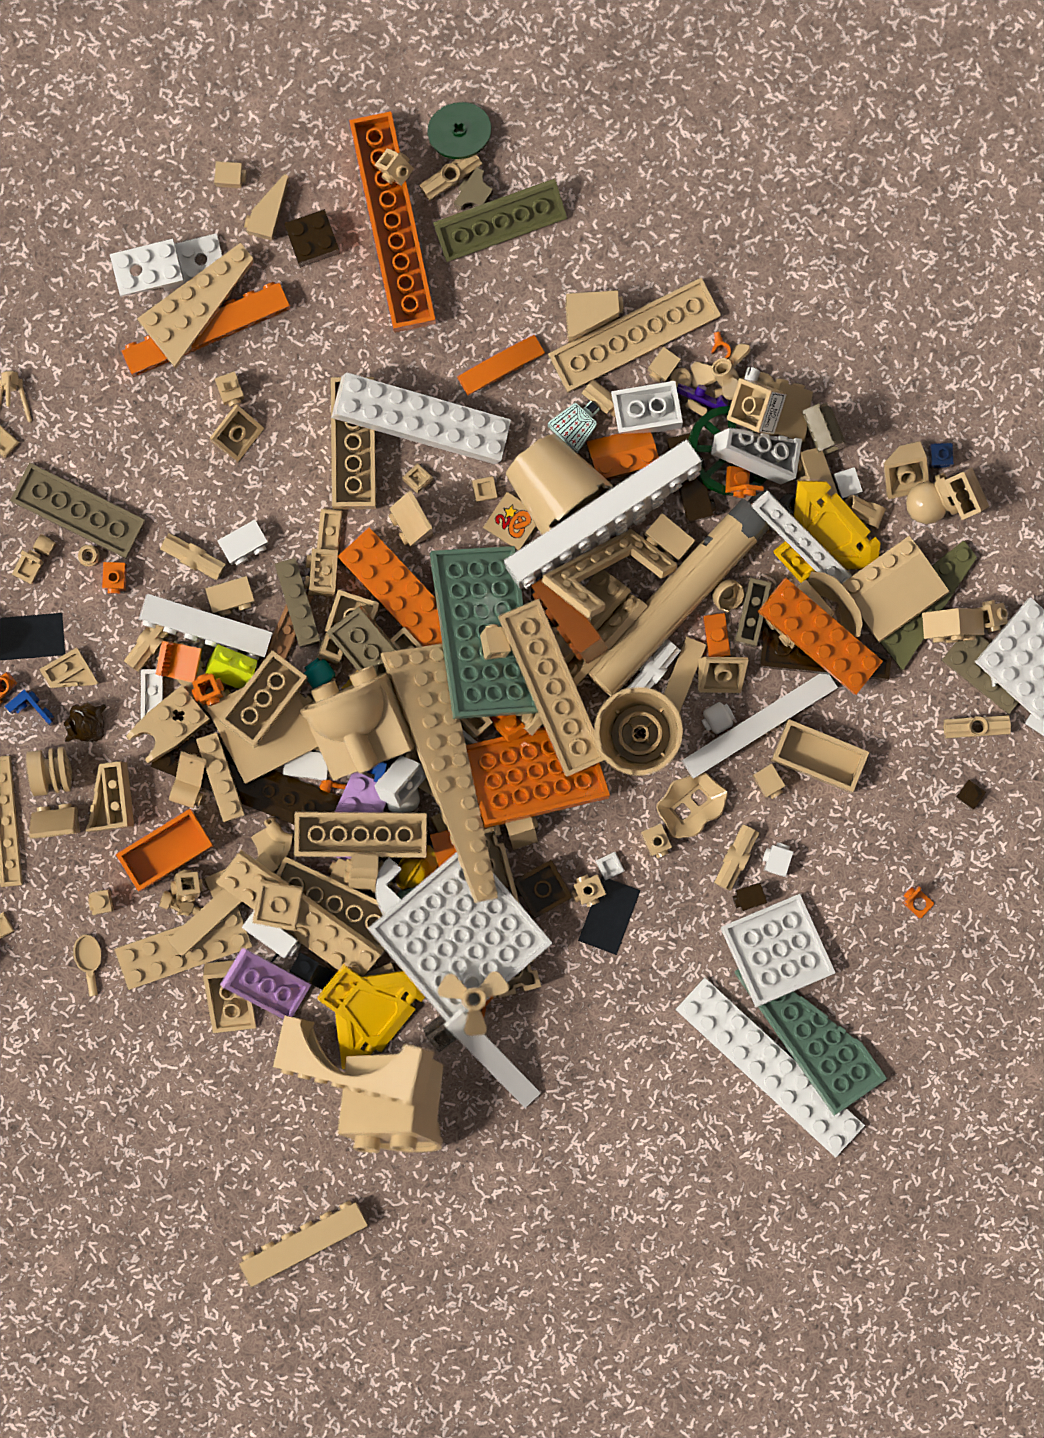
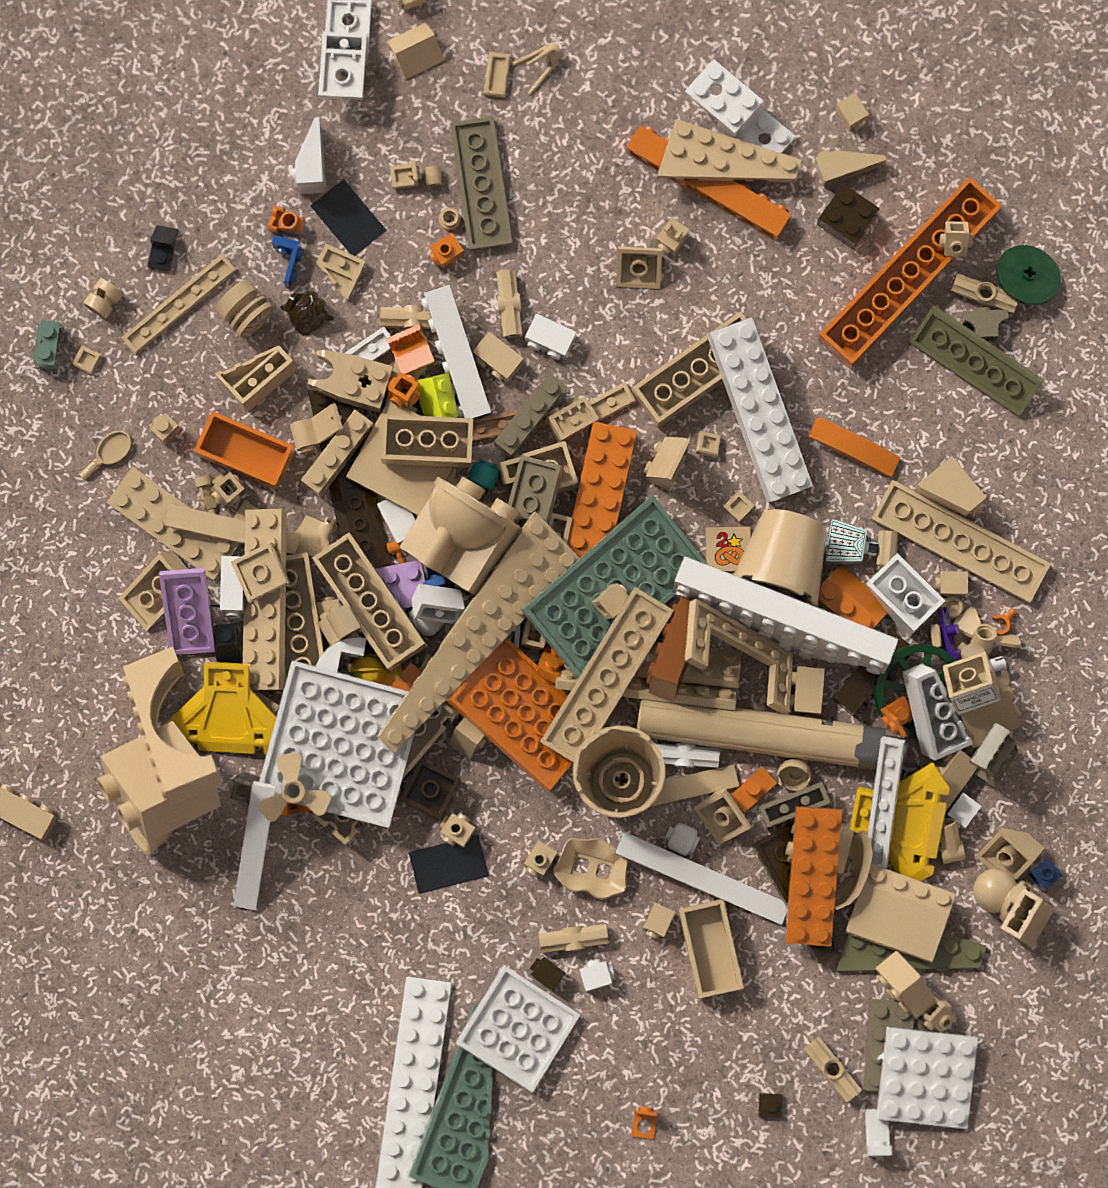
camera: 65 degrees right, 5 degrees down
(54, 822) = (204, 343): tan slope -> none
(610, 866) = (491, 835): white tile -> none

